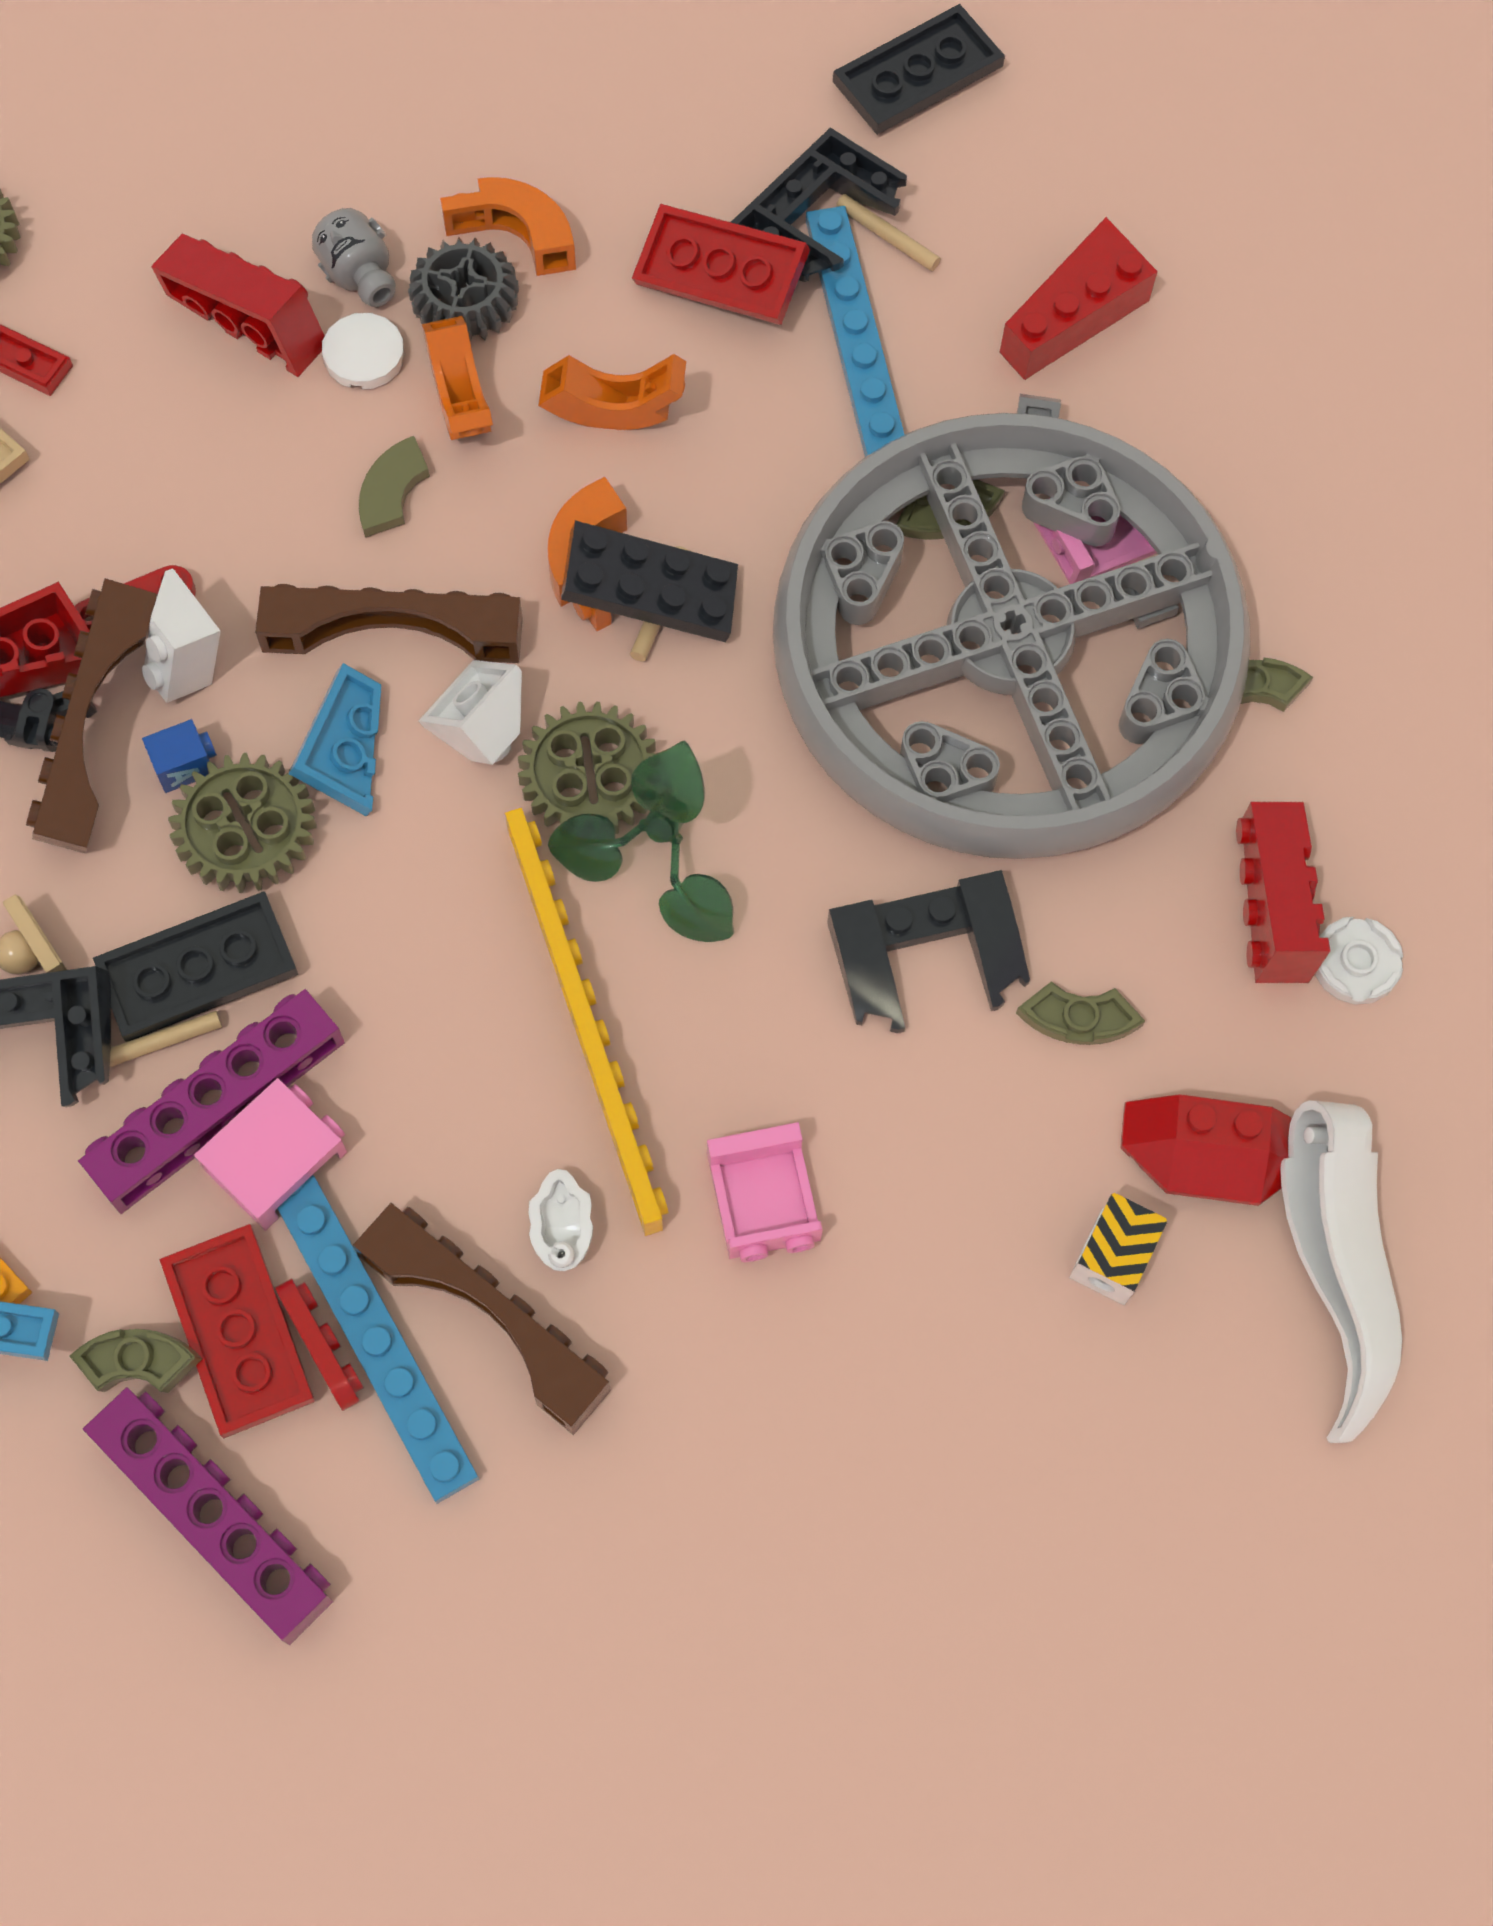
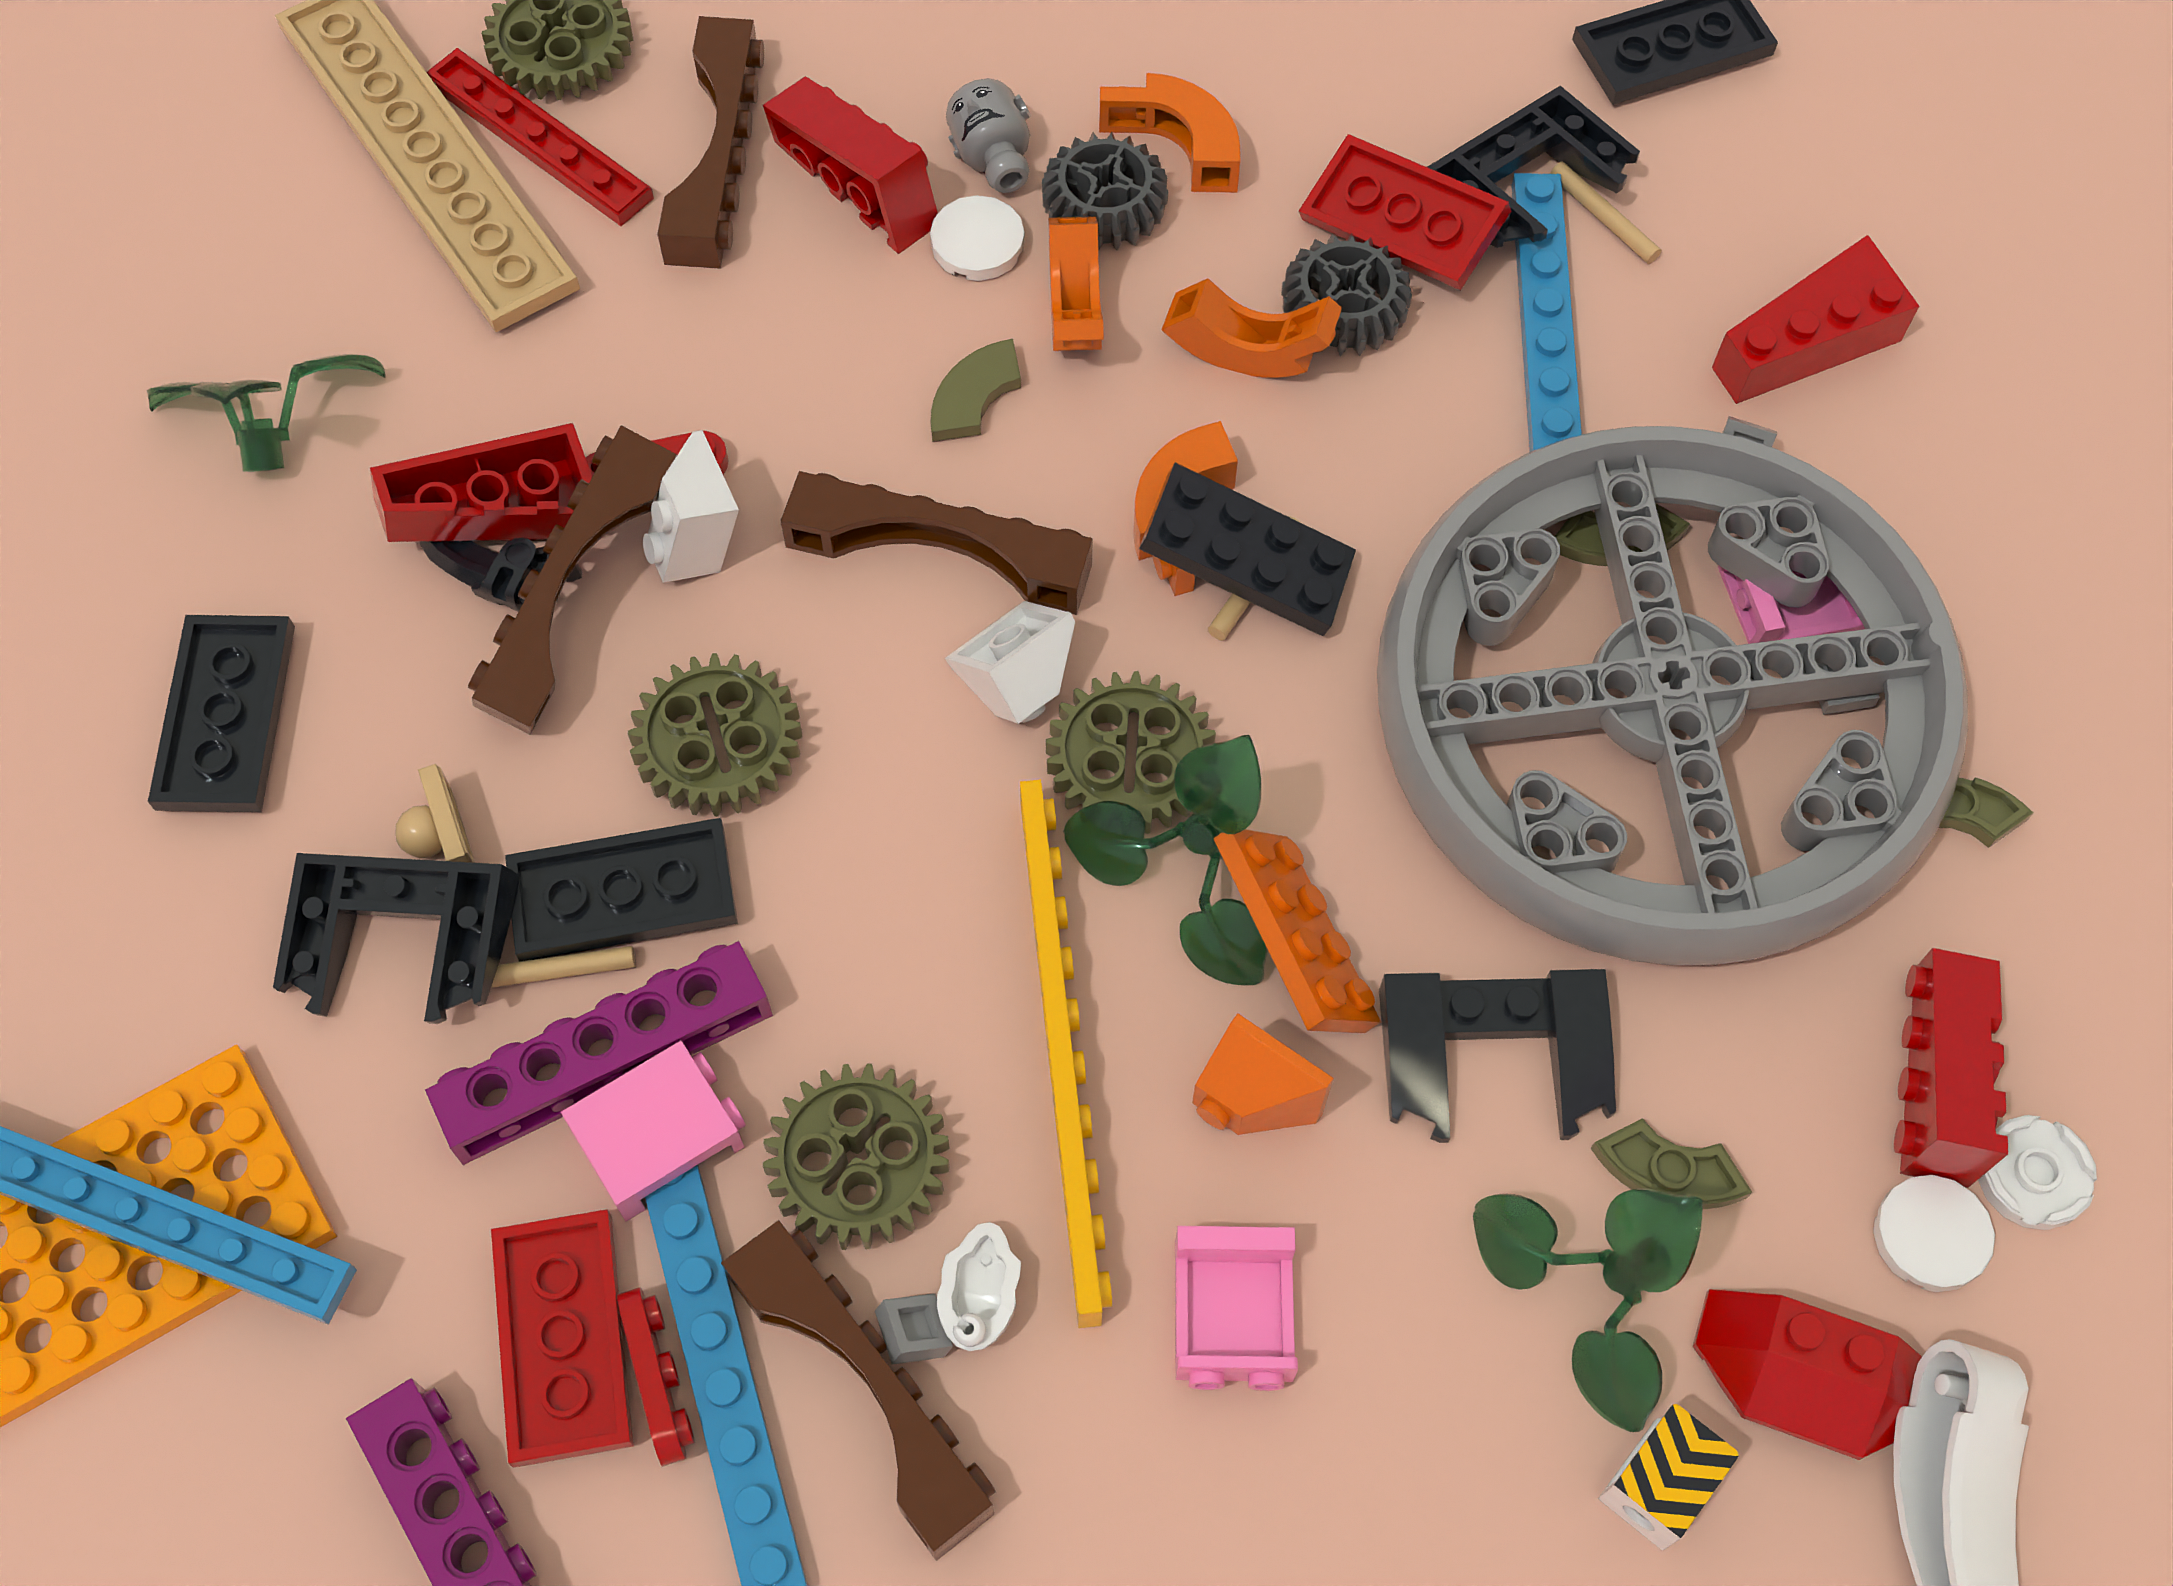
camera: 15 degrees right, 5 degrees down
(116, 371) = (697, 212): none -> reddish brown arch
(135, 1355) = (435, 1341): olive tile -> none
(178, 753) = (660, 640): blue brick -> none
(341, 741) = (849, 664): dark azure wing -> none
(402, 1125) = (815, 1128): none -> olive gear
(515, 1264) = (912, 1329): none -> light grey plate
(681, 331) = (1346, 274): none -> dark grey gear
(747, 1016) = (1259, 1083): none -> orange slope
(754, 889) = (1298, 932): none -> orange plate
(1075, 1079) = (1653, 1249): none -> clear green plant
(1287, 1023) = (1934, 1233): none -> white tile

